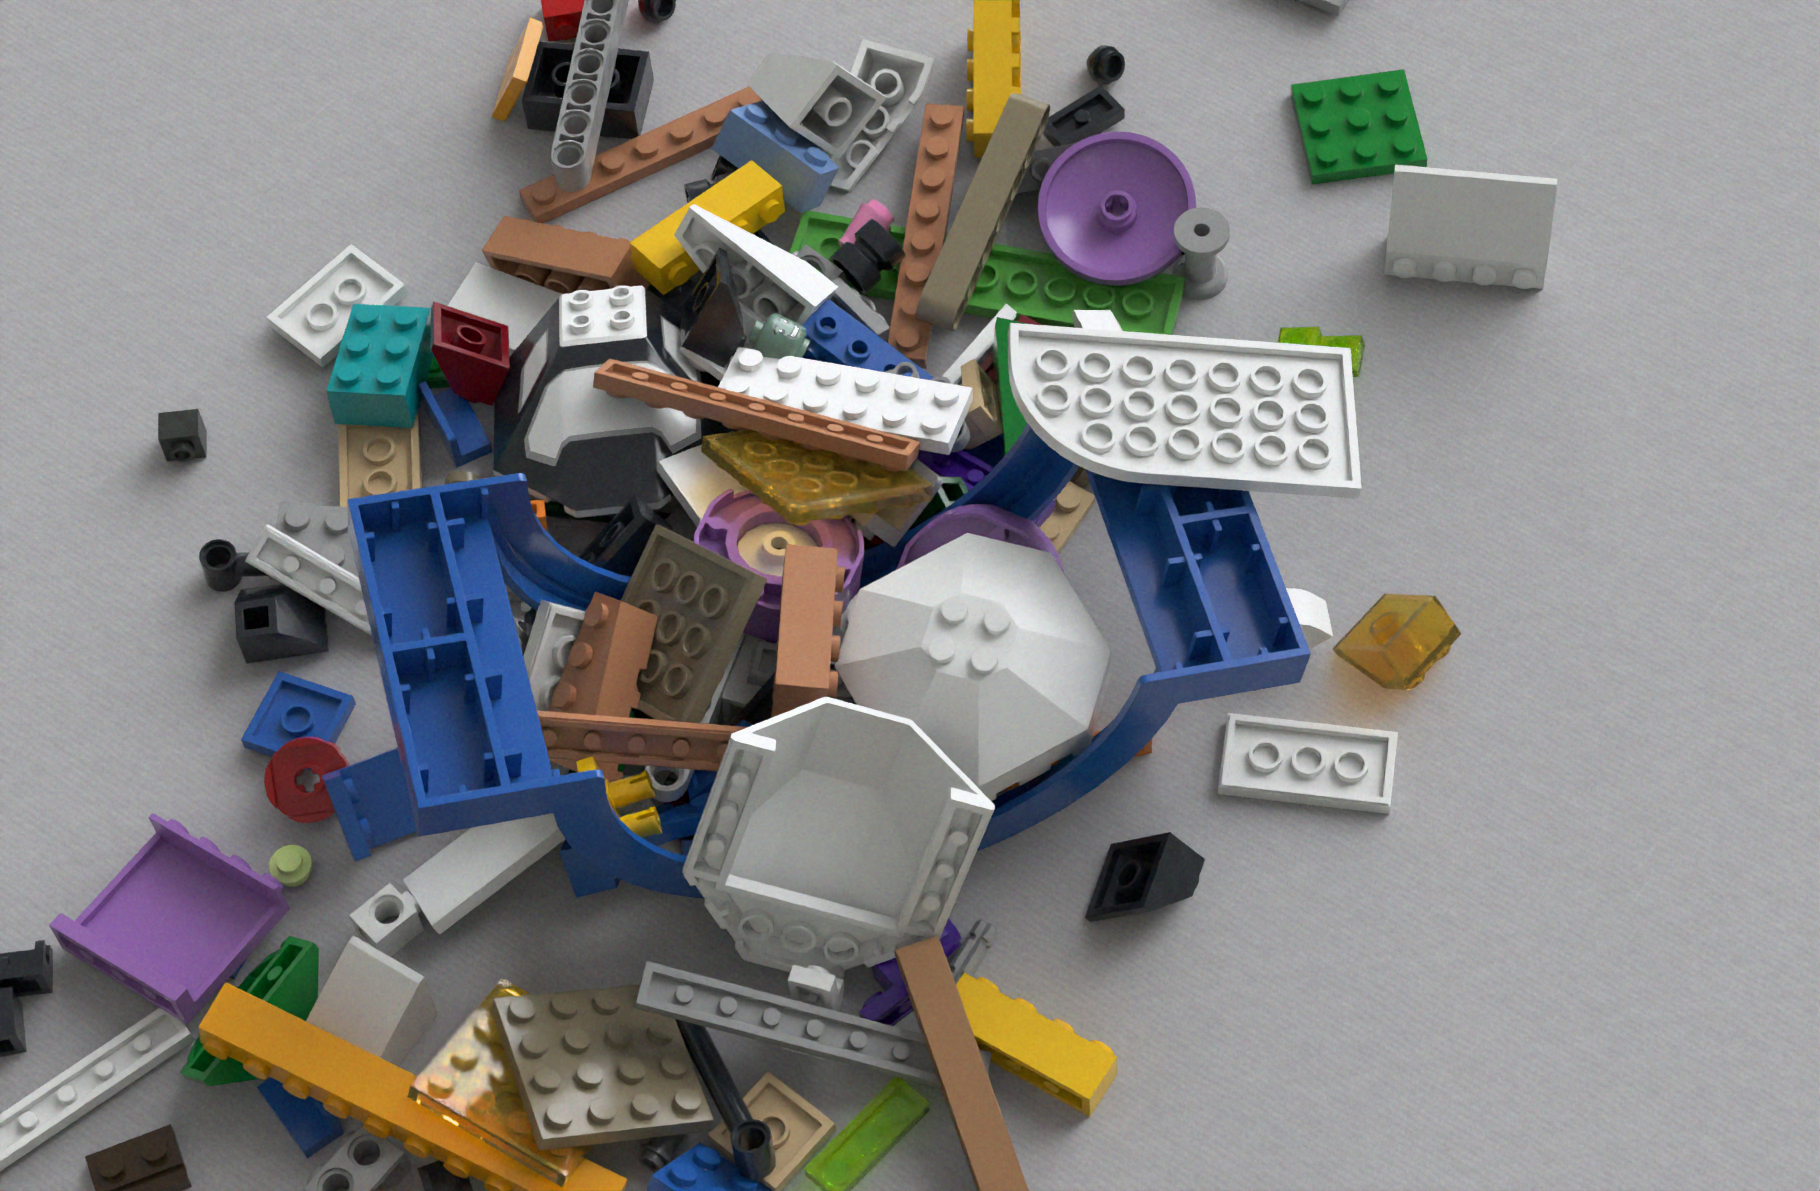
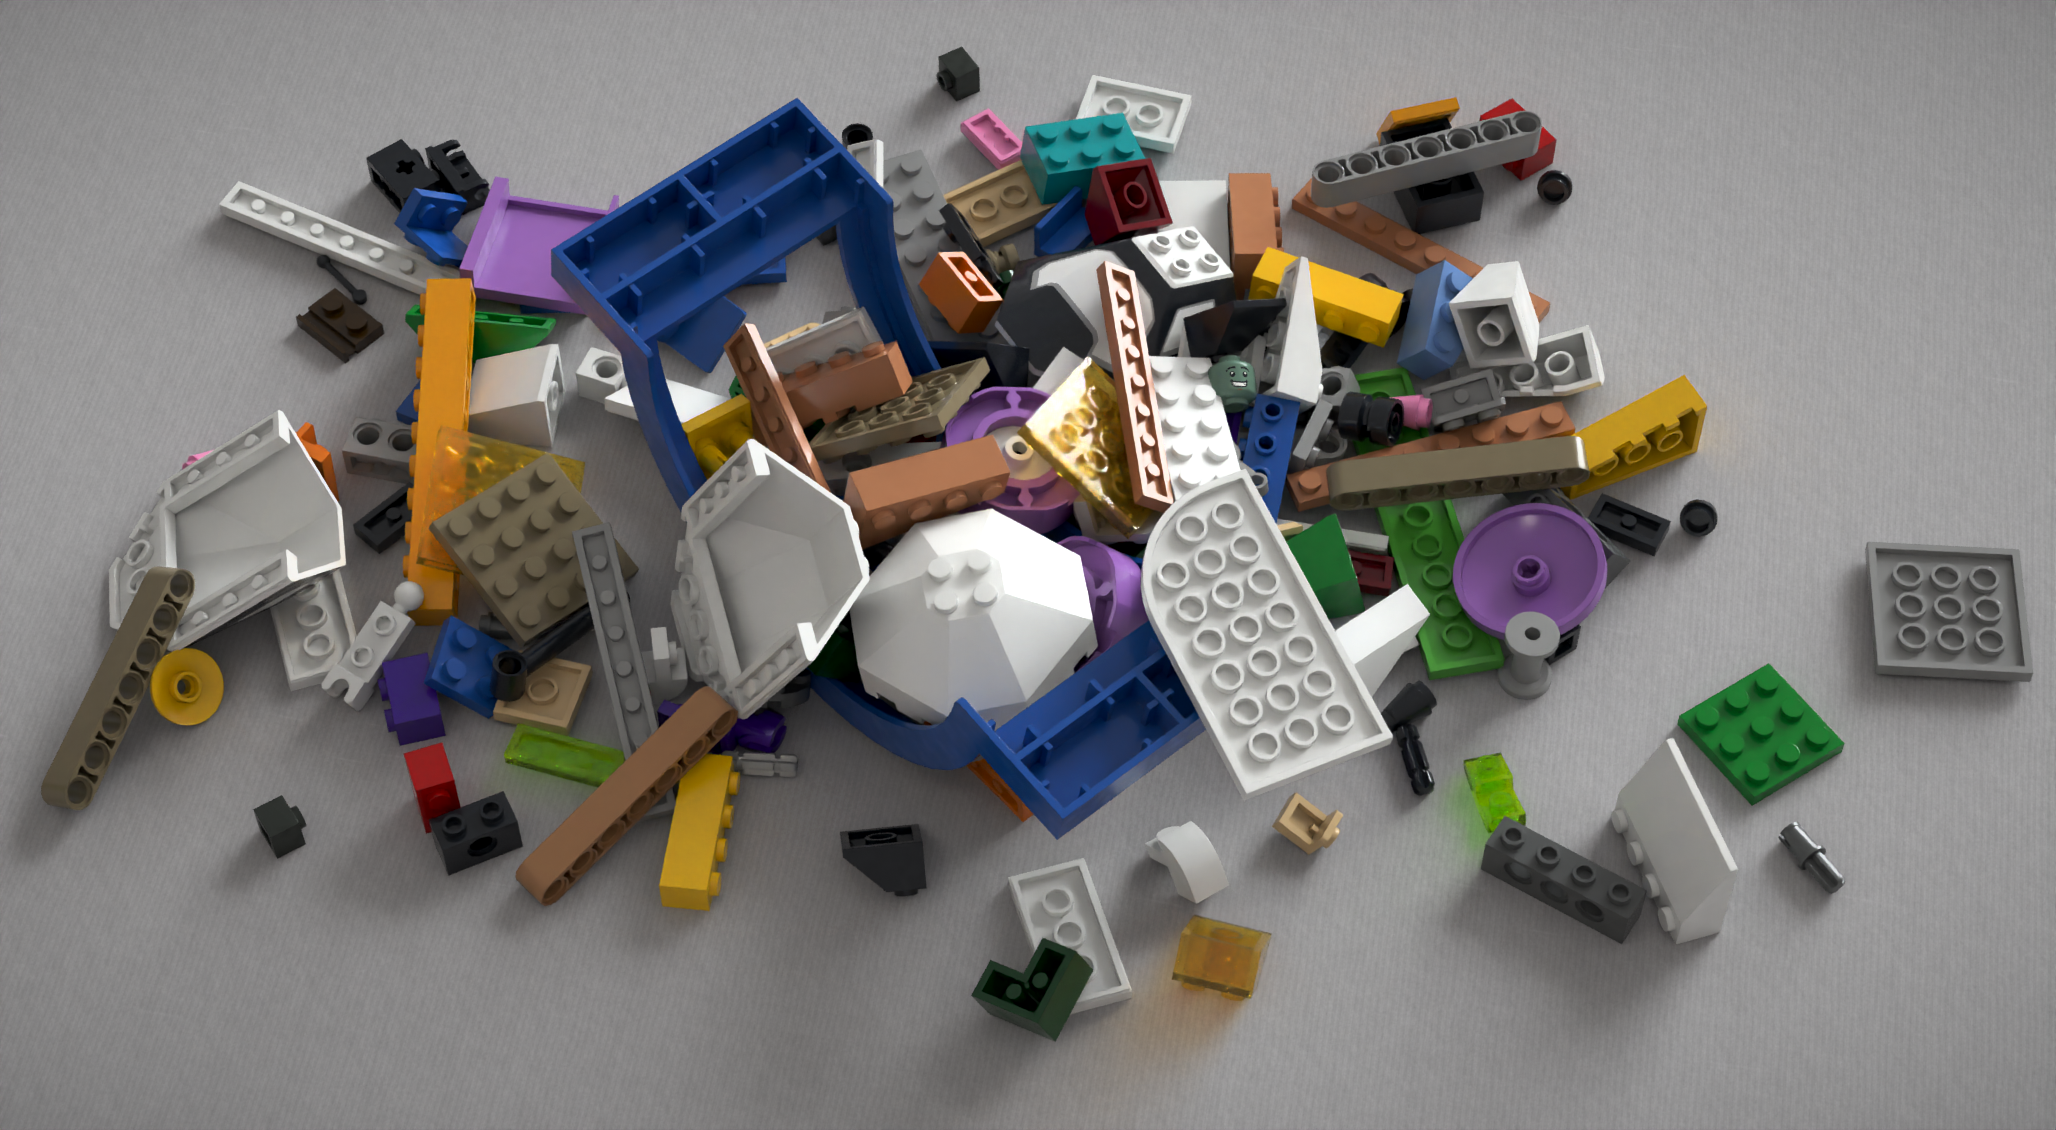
camera: 60 degrees right, 5 degrees down
(83, 1025) = (429, 223): none -> blue bracket
(105, 1138) = (359, 296): none -> black hinge
(290, 439) = (992, 138): none -> bright pink plate
(885, 175) = (1464, 401): none -> light grey bracket
(1287, 513) = (1306, 824): none -> tan bracket
(1388, 810) = (1041, 995): none -> dark green brick
(1447, 336) = (1563, 879): none -> dark grey brick
(1509, 146) = (1811, 857): none -> dark grey axle

